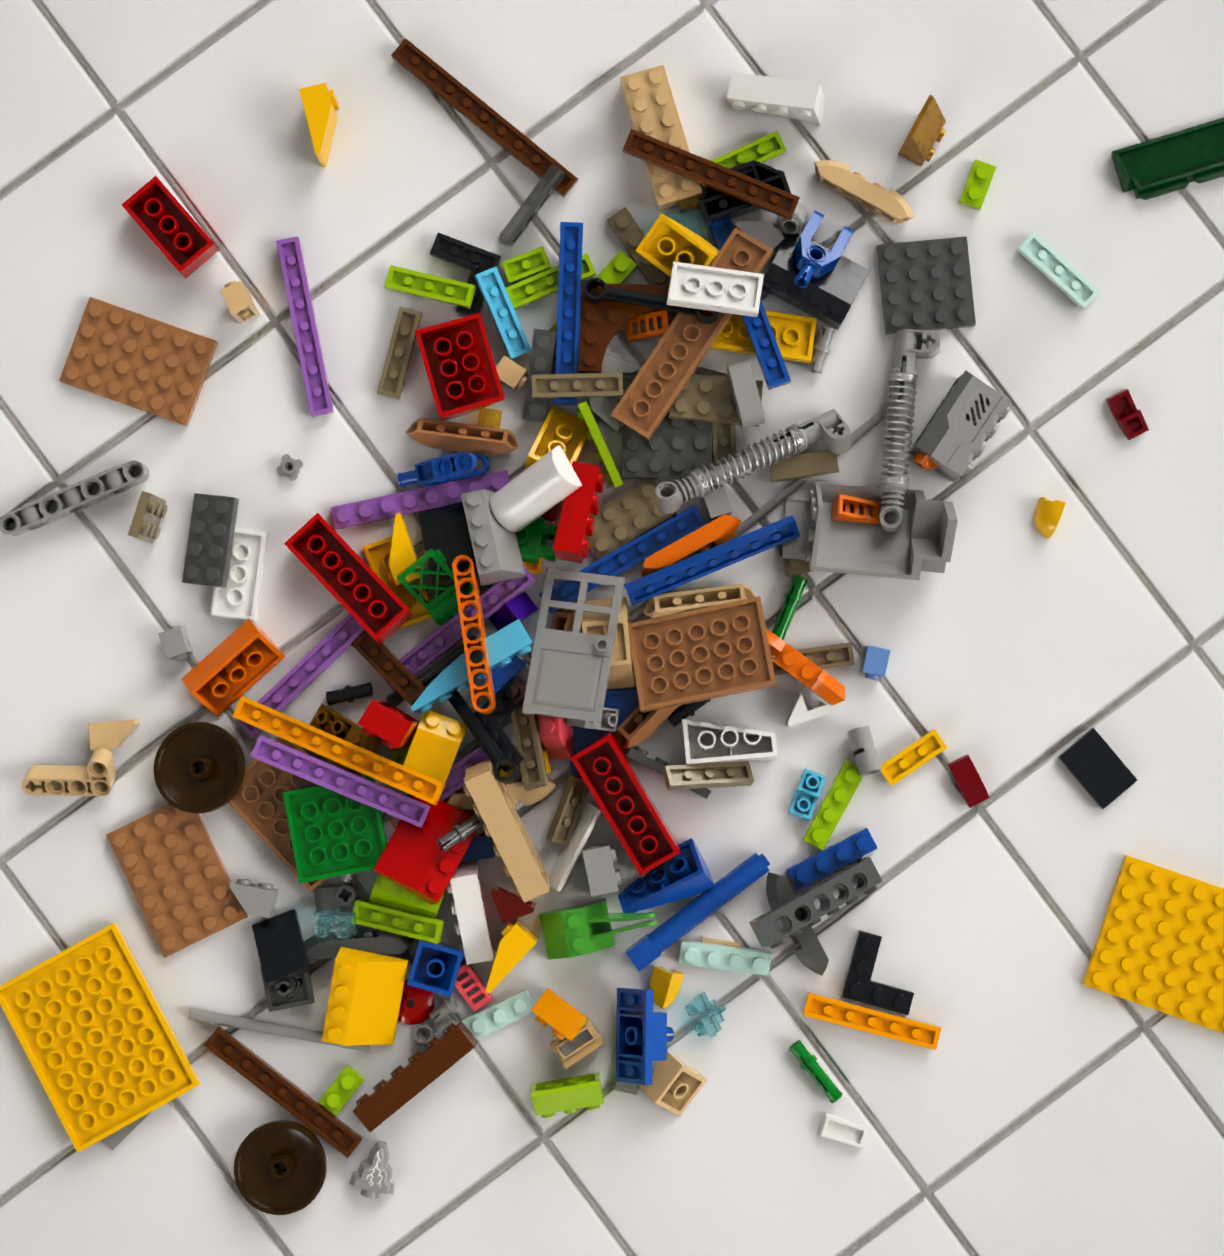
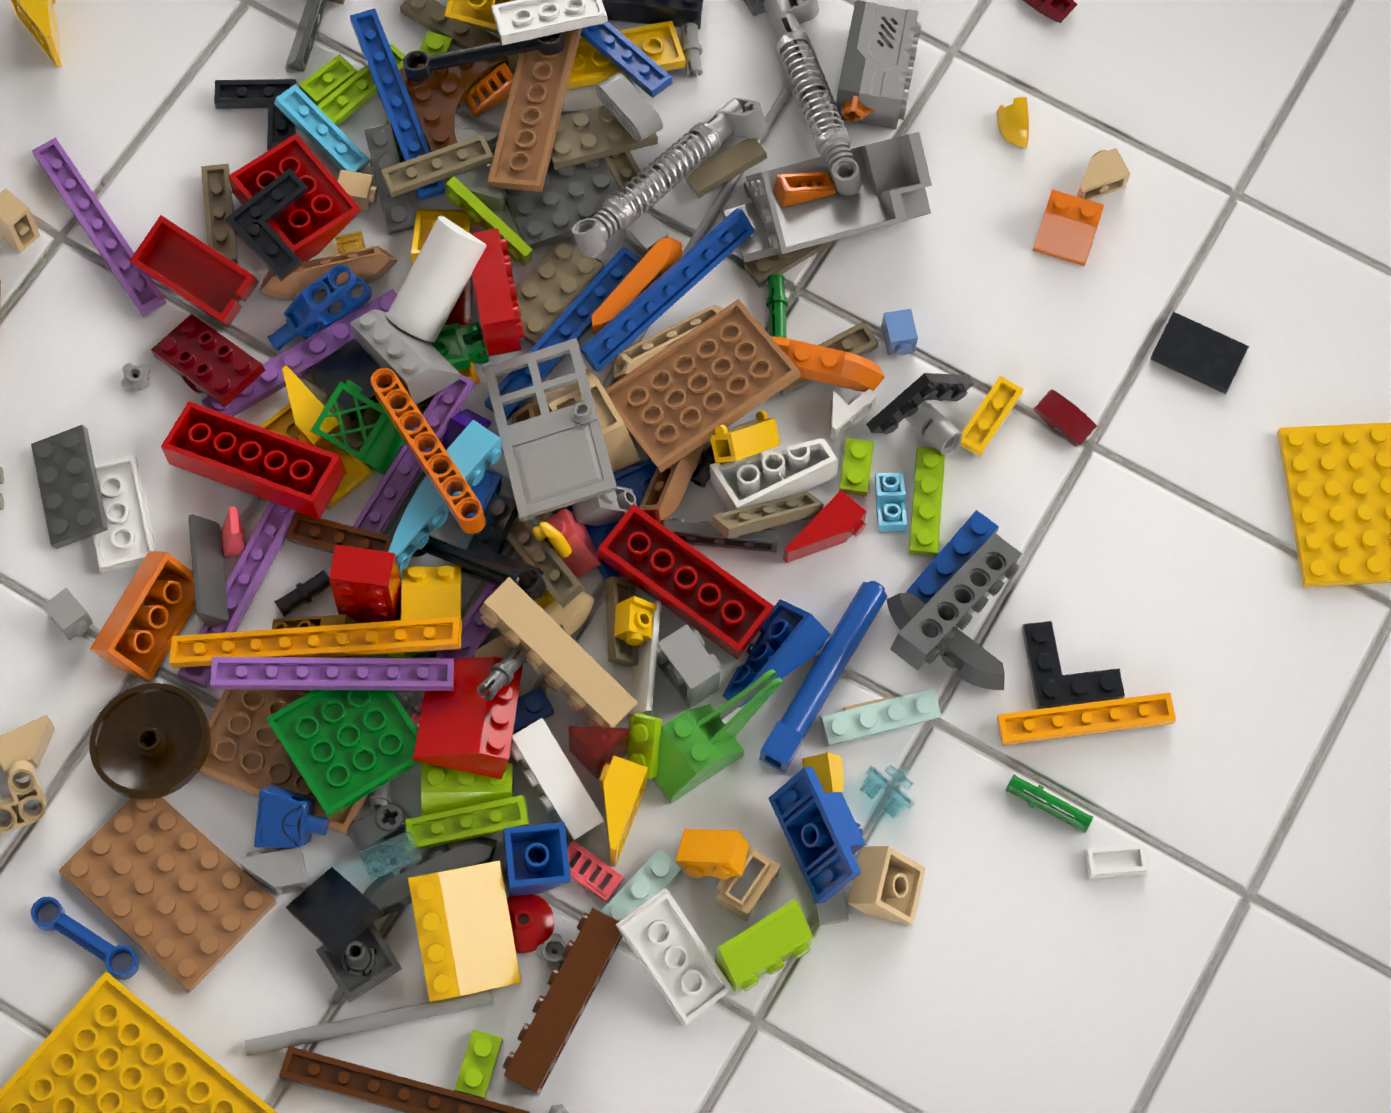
camera: 25 degrees left, 20 degrees down
(108, 890) = (85, 938): none -> blue piece
(272, 868) = (286, 819): none -> blue torso
(286, 651) = (208, 571): none -> dark grey slope
(314, 630) = (232, 534): none -> coral slope
(345, 479) = (207, 360): none -> dark red plate
(360, 402) = (194, 271): none -> red piece
(415, 384) = (252, 221): none -> black plate
(430, 286) = (228, 134): lime plate -> none
(445, 1009) = (568, 912): light grey pin -> none
(501, 1077) = (674, 956): none -> white tile
(541, 733) = (554, 536): none -> yellow arm
(543, 916) = (645, 742): none -> lime plate
(575, 819) = (634, 620): none -> yellow brick
(716, 711) = (745, 439): none -> yellow brick
(754, 798) = (829, 528): none -> red slope
(794, 756) = (856, 467): none -> lime plate
(866, 731) = (927, 387): none -> black plate
(1046, 626) = (1068, 227): none -> orange slope
(1095, 590) = (1104, 175): none -> tan slope

